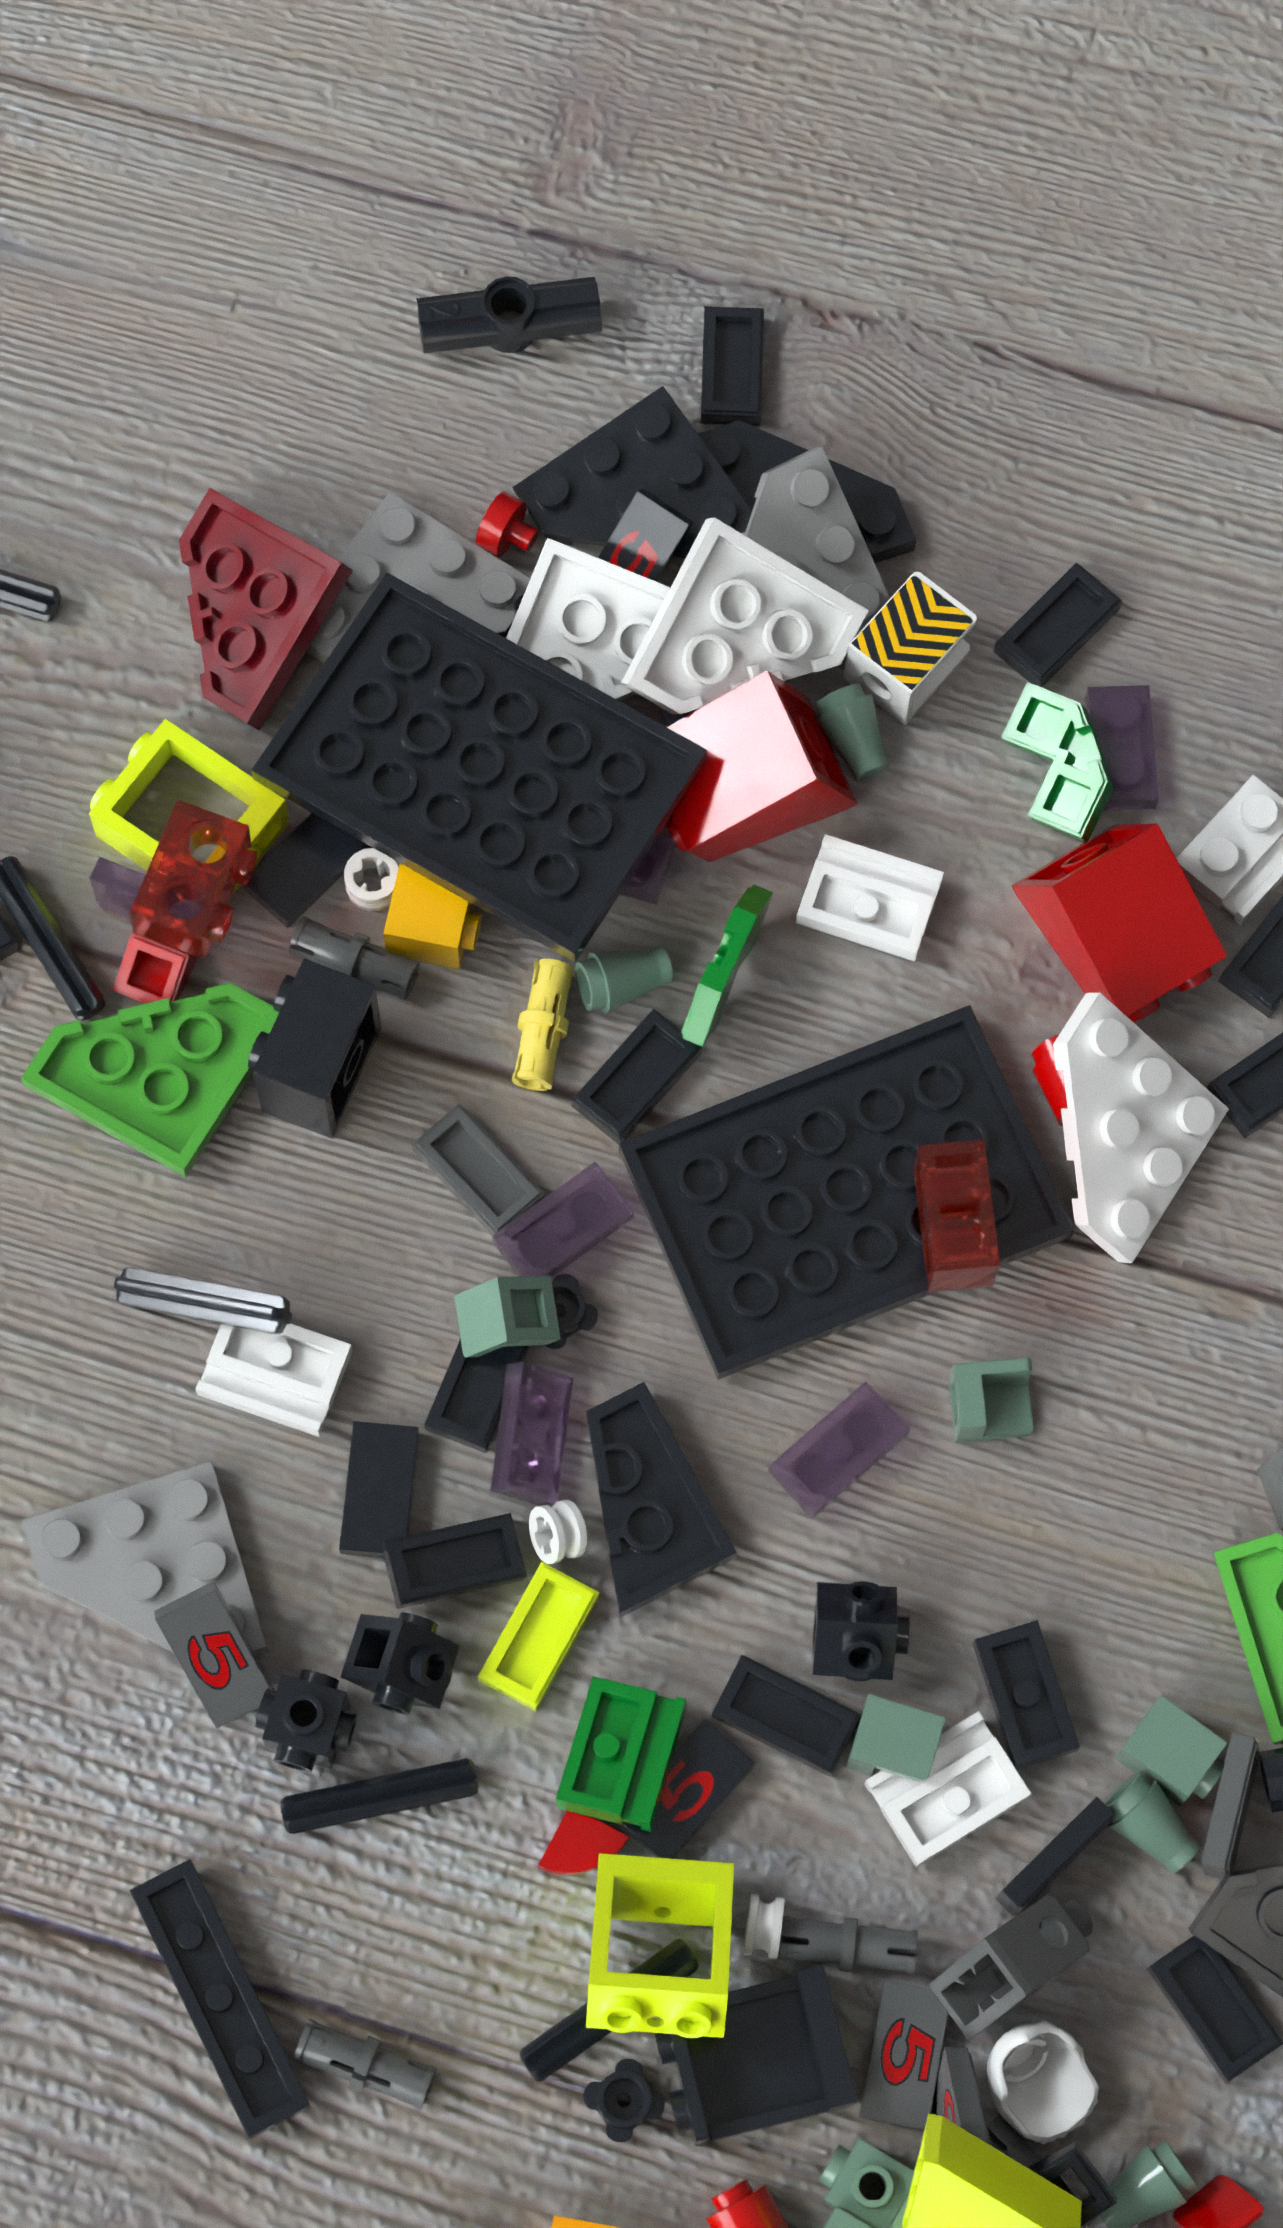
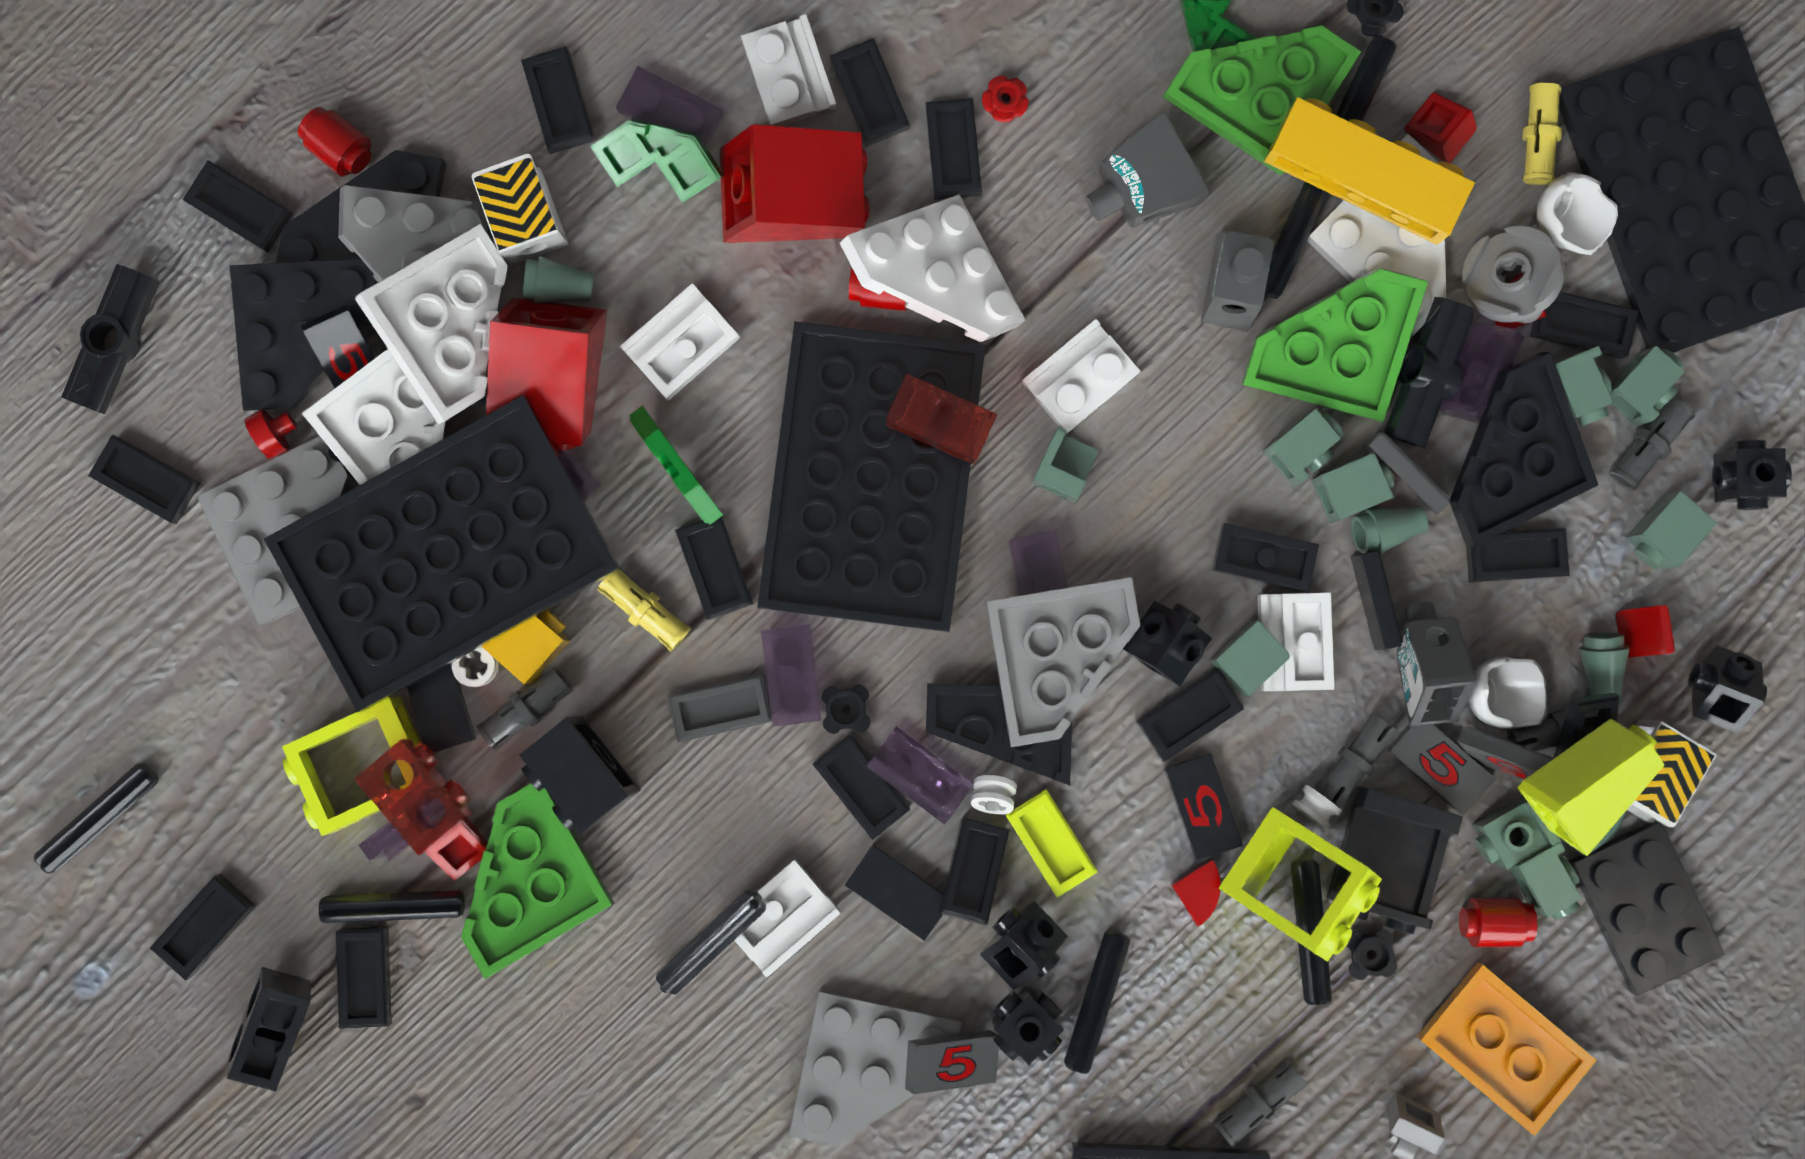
camera: 55 degrees left, 15 degrees up
(253, 603) = (228, 637): dark red plate -> none
(375, 431) = (144, 479): none -> black tile
(507, 1314) = (835, 749): sand green panel -> none
(619, 977) = (641, 539): sand green cone -> none
(621, 1753) = (1160, 835): green plate -> none
(768, 1503) = (1057, 651): none -> light grey plate
(864, 422) = (335, 141): none -> red brick
(1106, 1364) = (1081, 376): none -> white plate
(1186, 1665) = (1304, 446): none -> sand green brick

